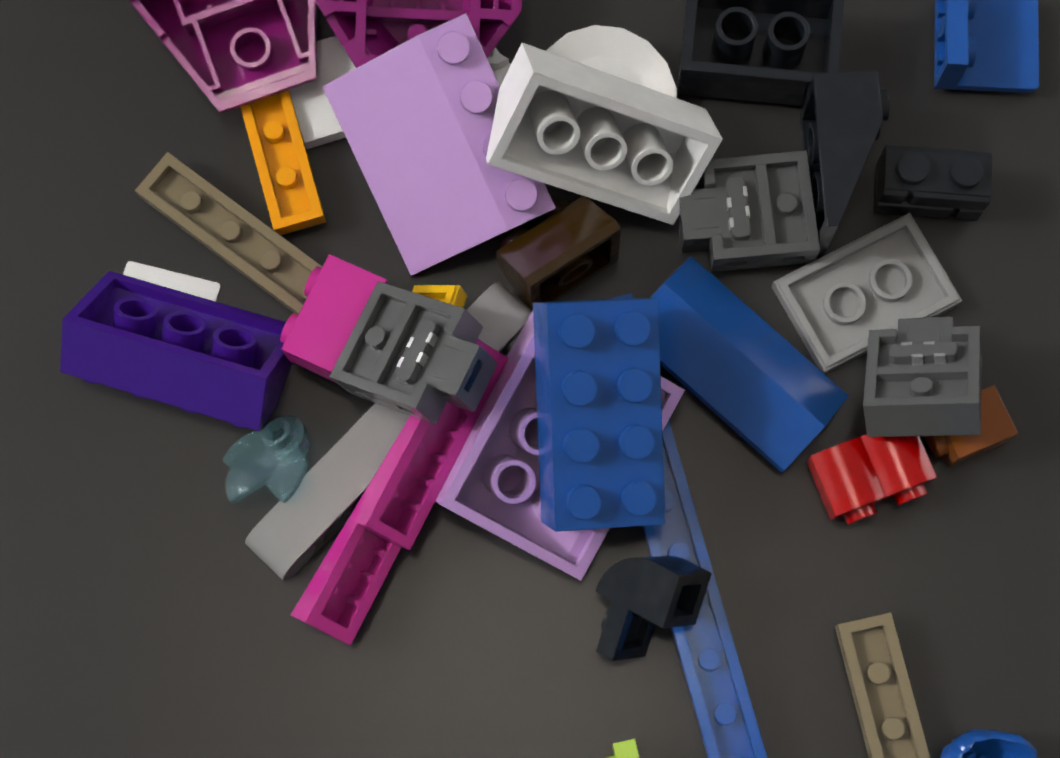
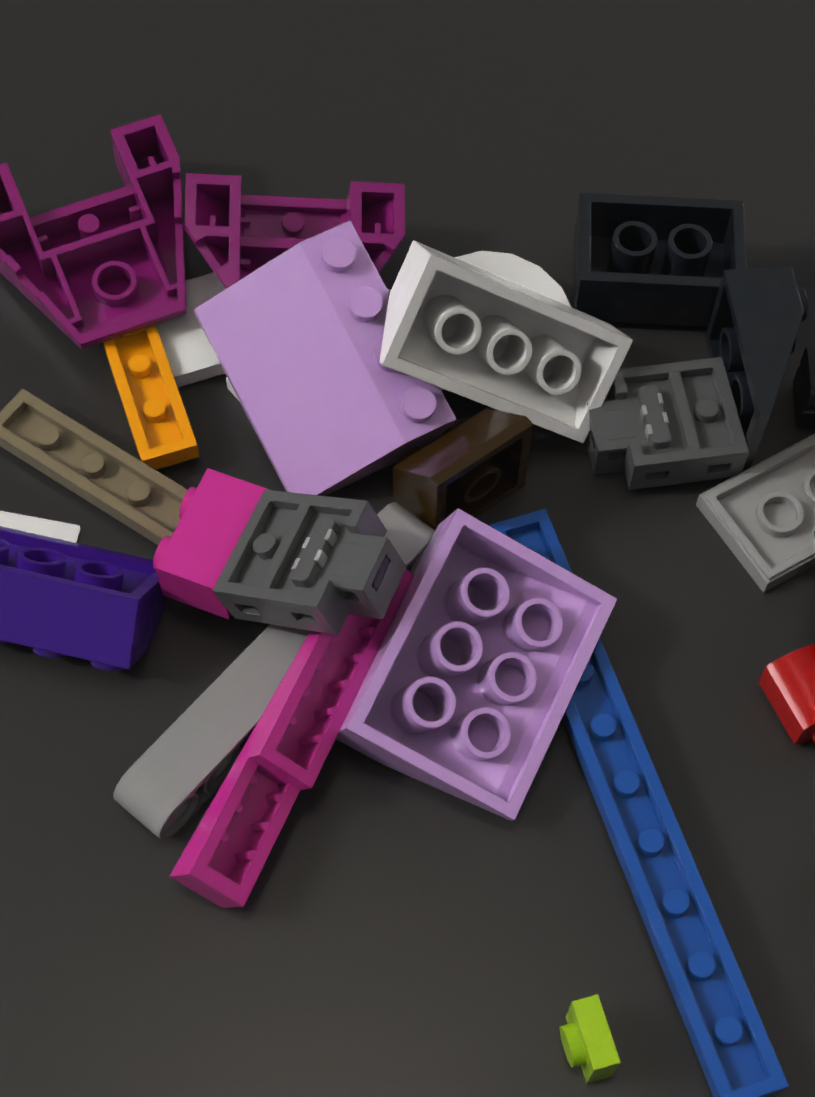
camera: 10 degrees left, 15 degrees down
(268, 458) = (146, 698): clear light blue plate -> none
(599, 413) = (526, 613): blue brick -> none
(647, 594) = (589, 819): black brick -> none
(741, 366) = (668, 579): blue slope -> none

